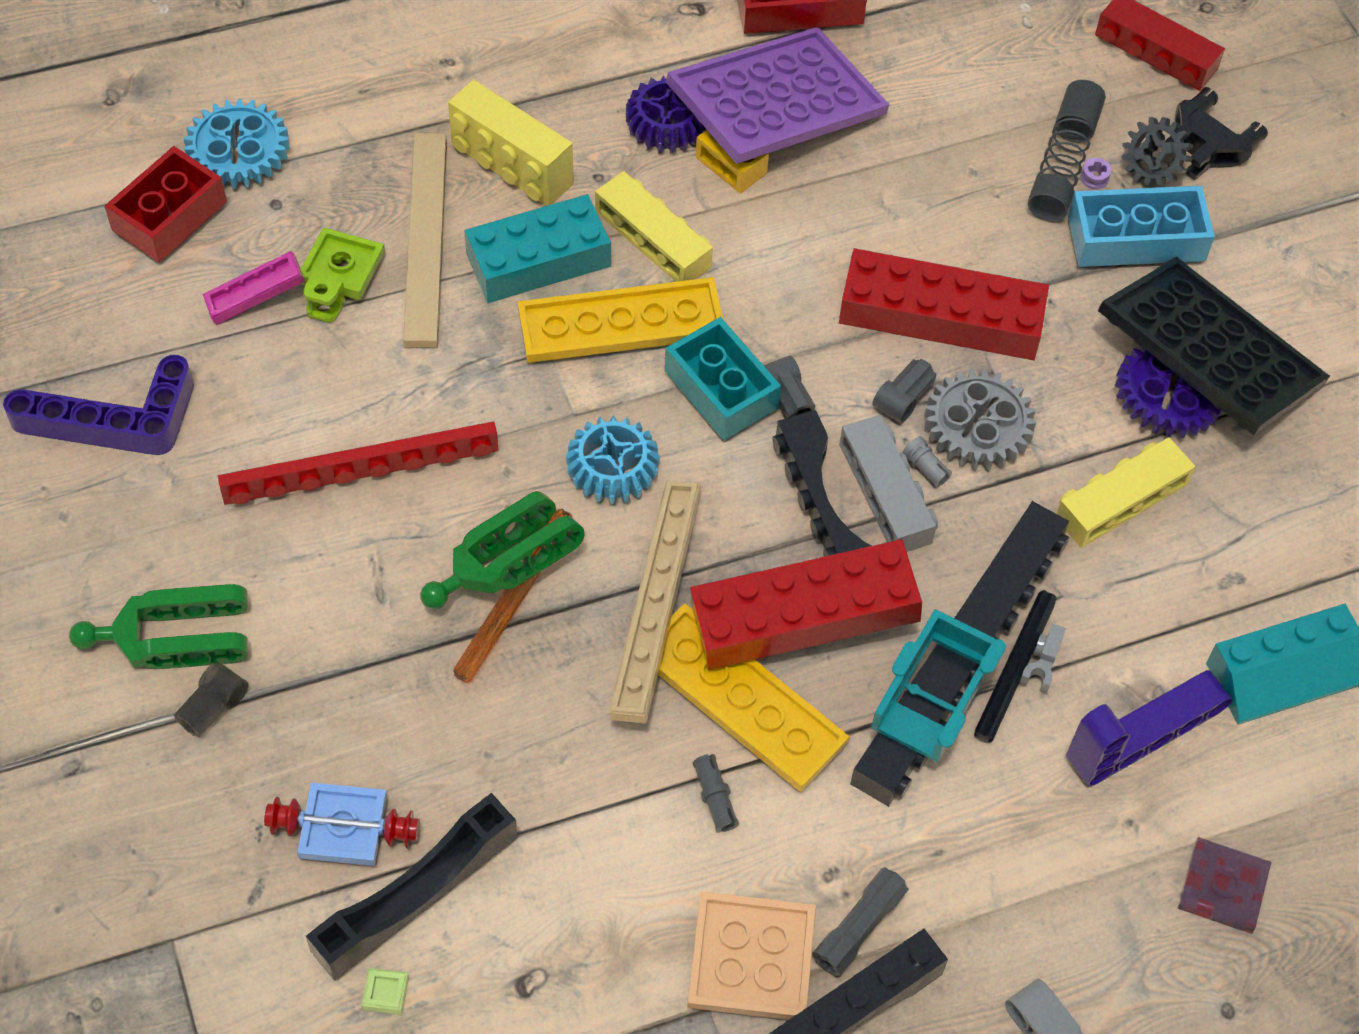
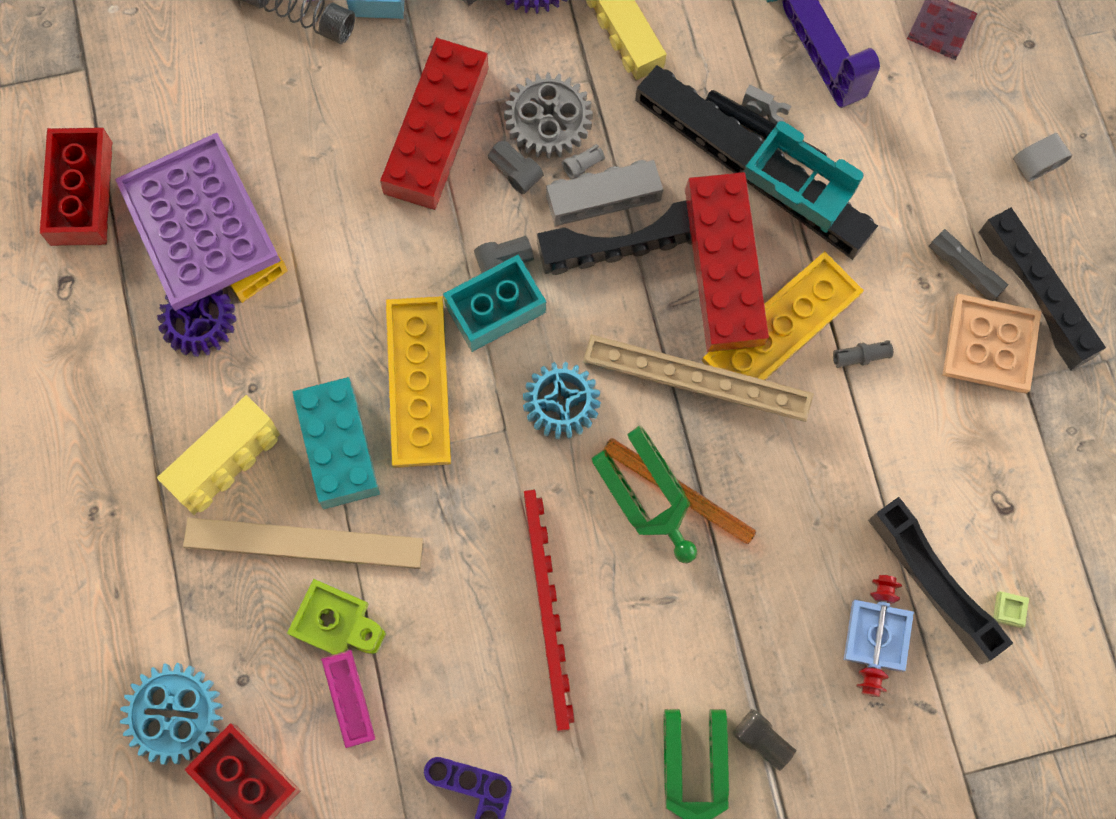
camera: 85 degrees left, 15 degrees up
(653, 228) = (325, 343): light yellow brick -> none

